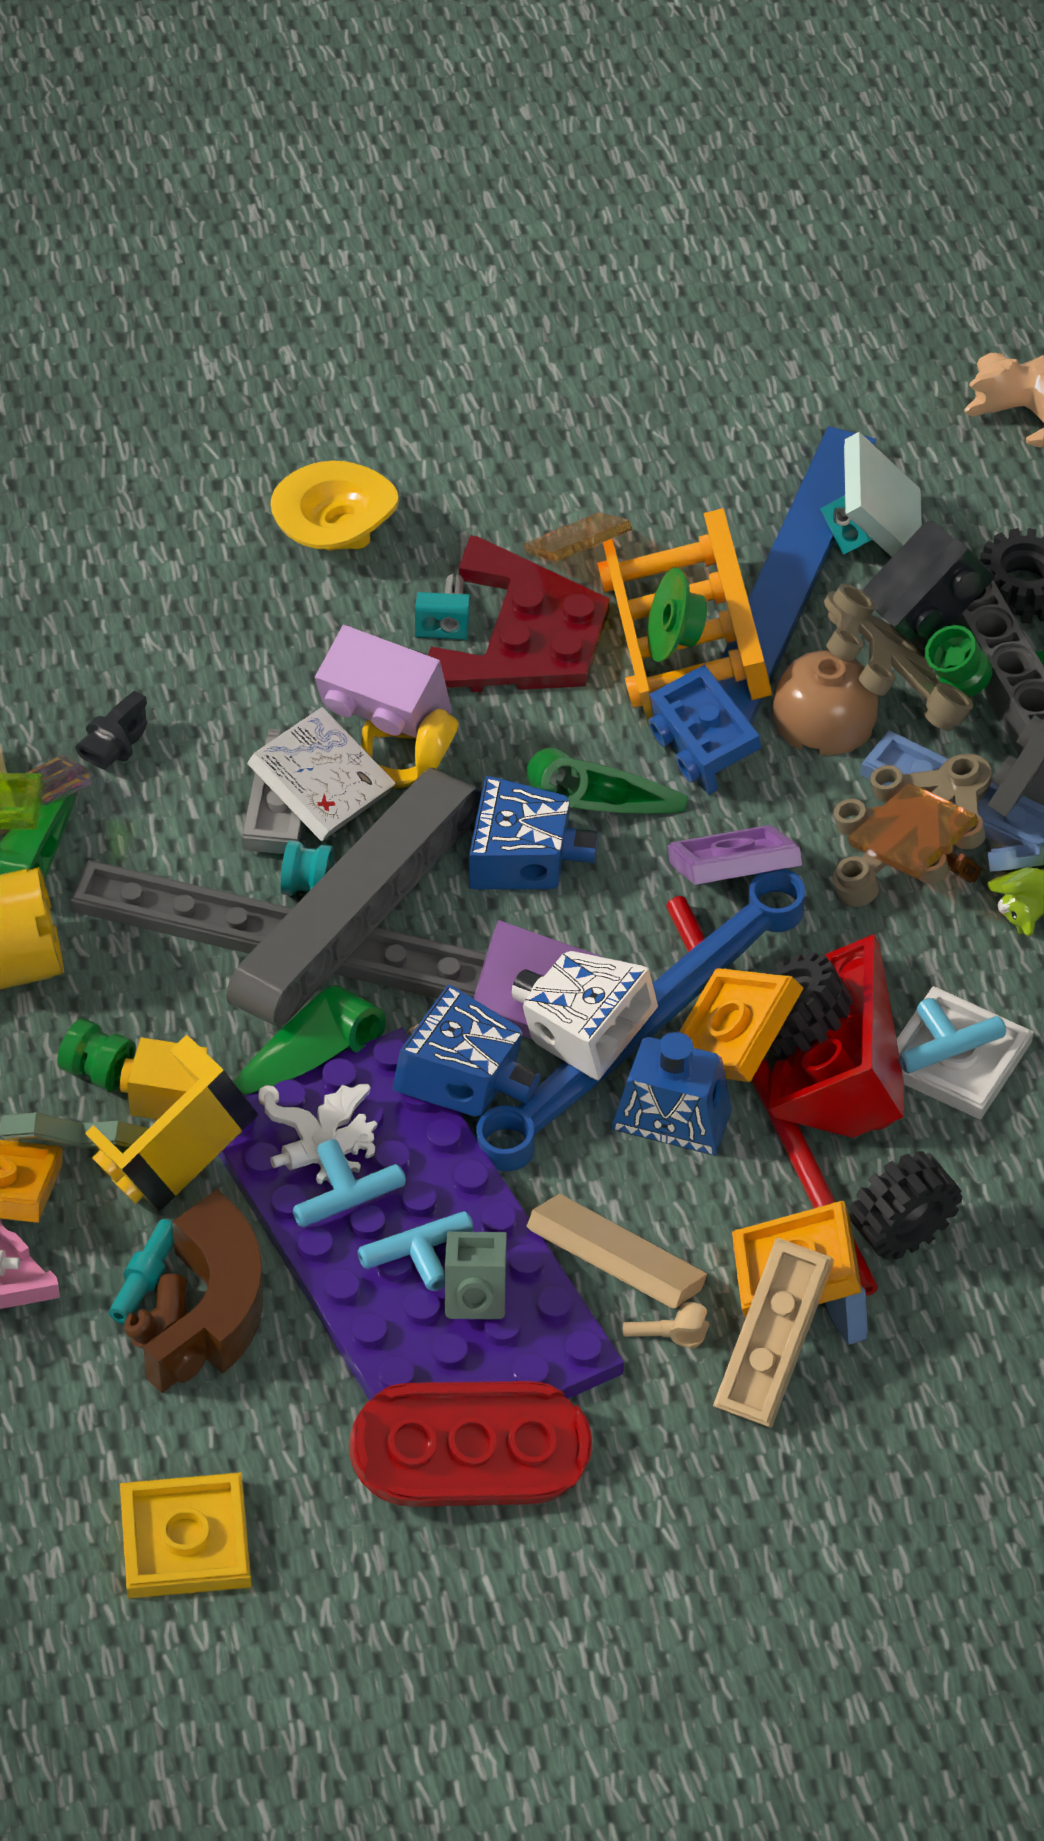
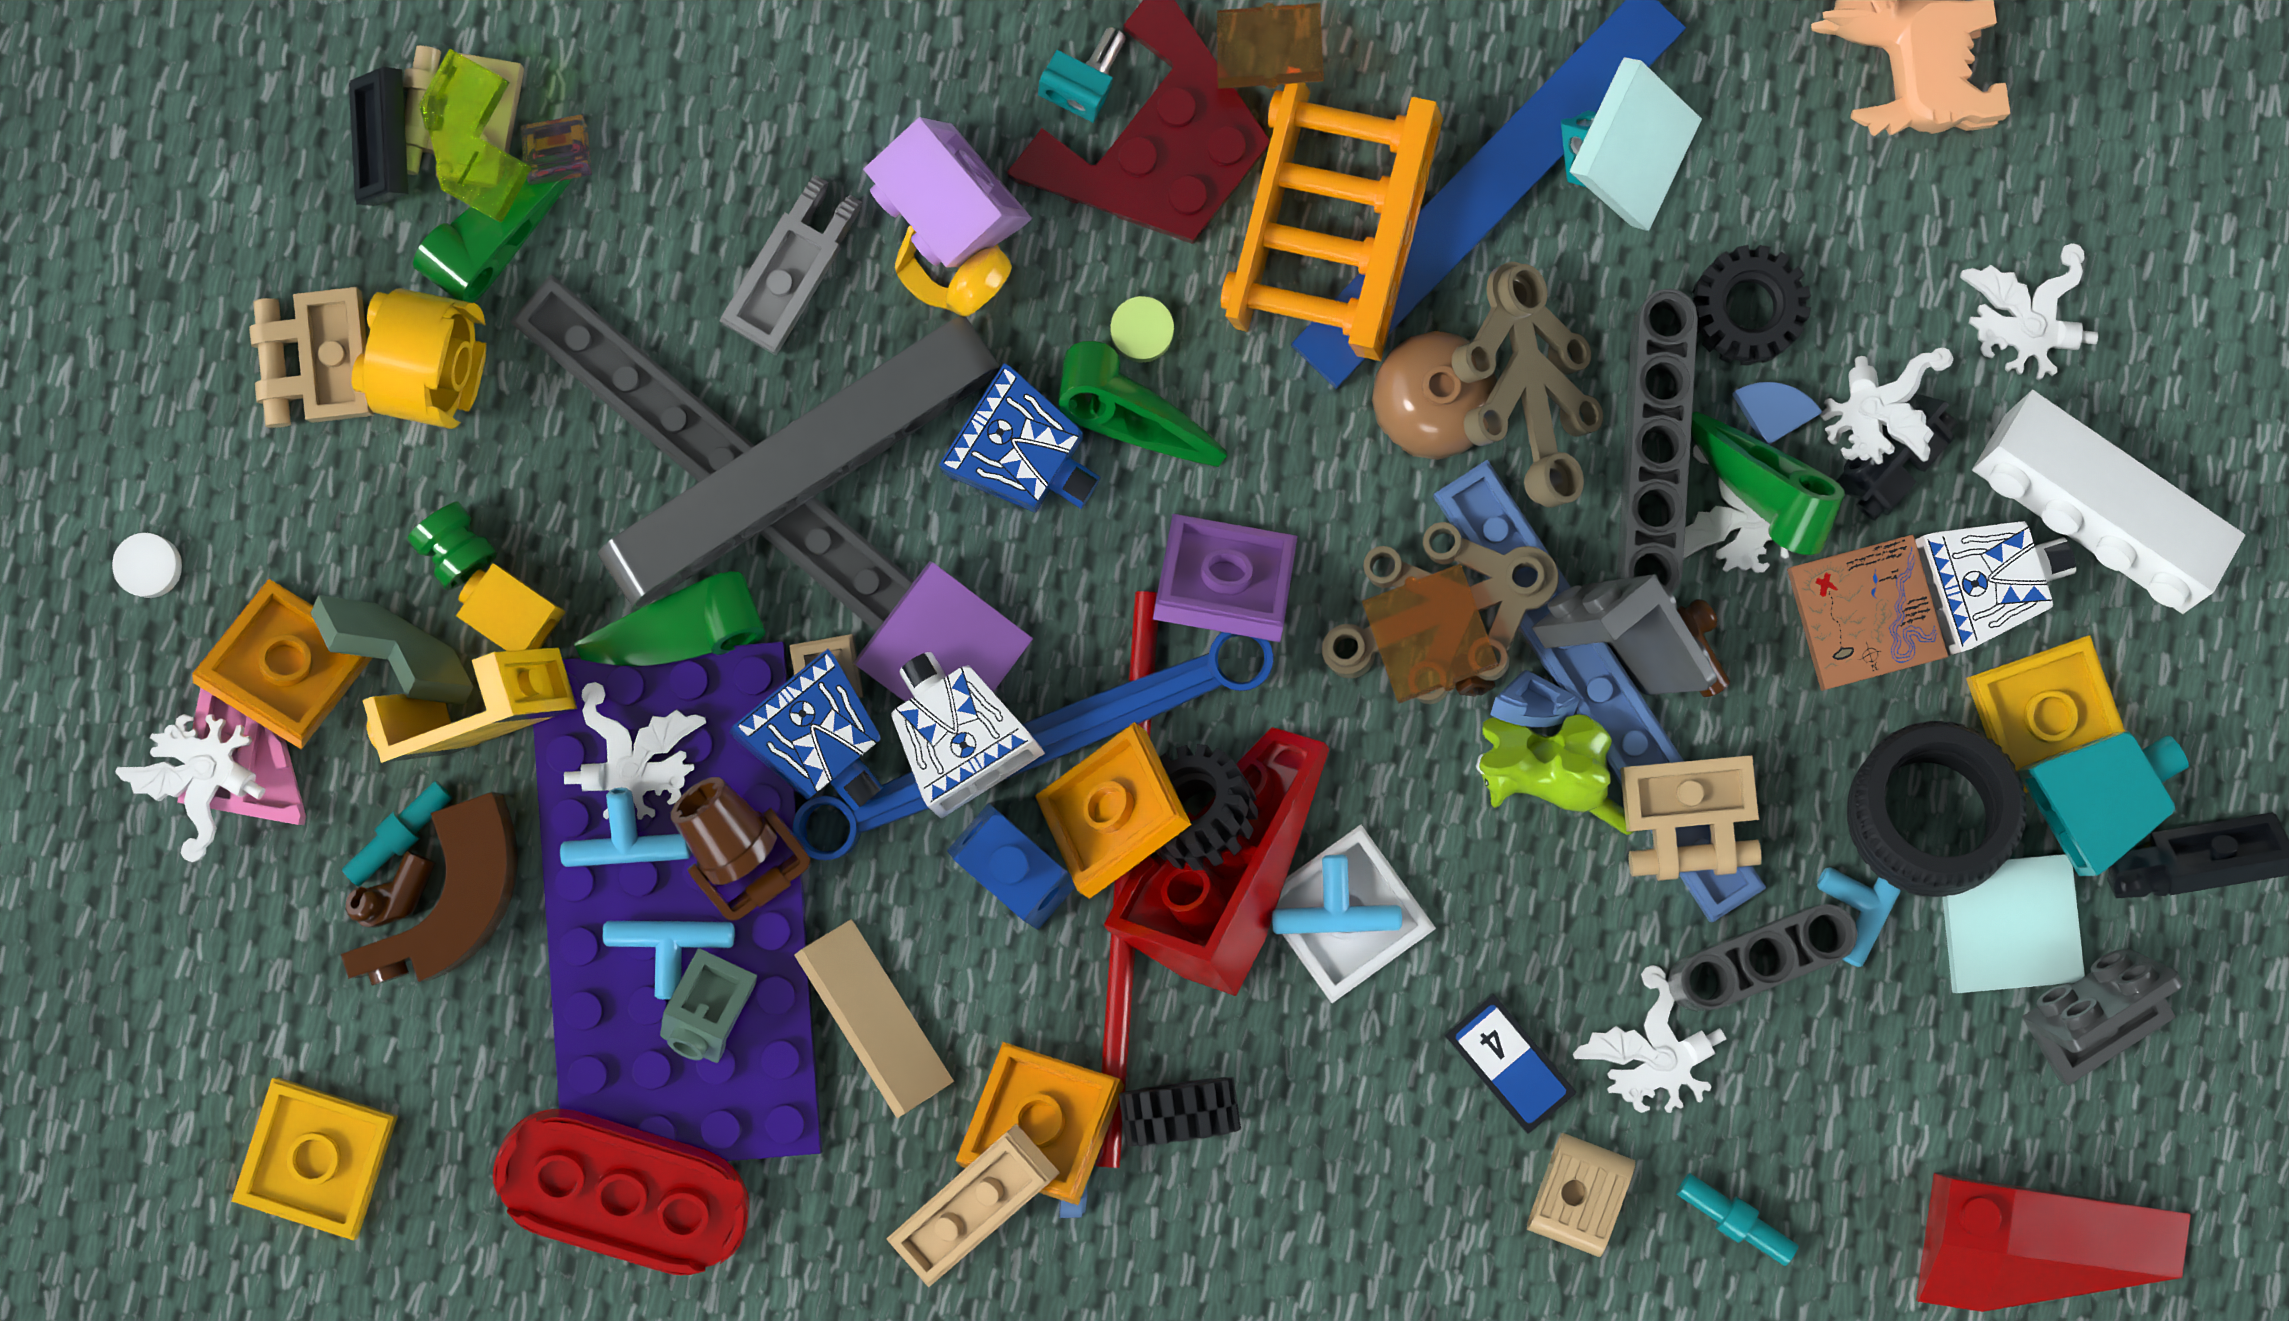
camera: 25 degrees right, 35 degrees up
(113, 736) = (634, 114): black piece -> none
(304, 866) = (771, 392): teal wheel -> none
(321, 773) = (836, 274): white tile -> none
(432, 1135) = (730, 842): none -> reddish brown piece
(579, 739) = (1142, 329): none -> yellowish green tile
(675, 616) = (1304, 242): green piece -> none
(686, 1330) = (905, 1135): tan hand -> none
(701, 726) = (1278, 383): blue bracket -> none
(927, 584) = (1613, 304): black bracket -> none
(958, 659) = (1578, 428): green wheel -> none

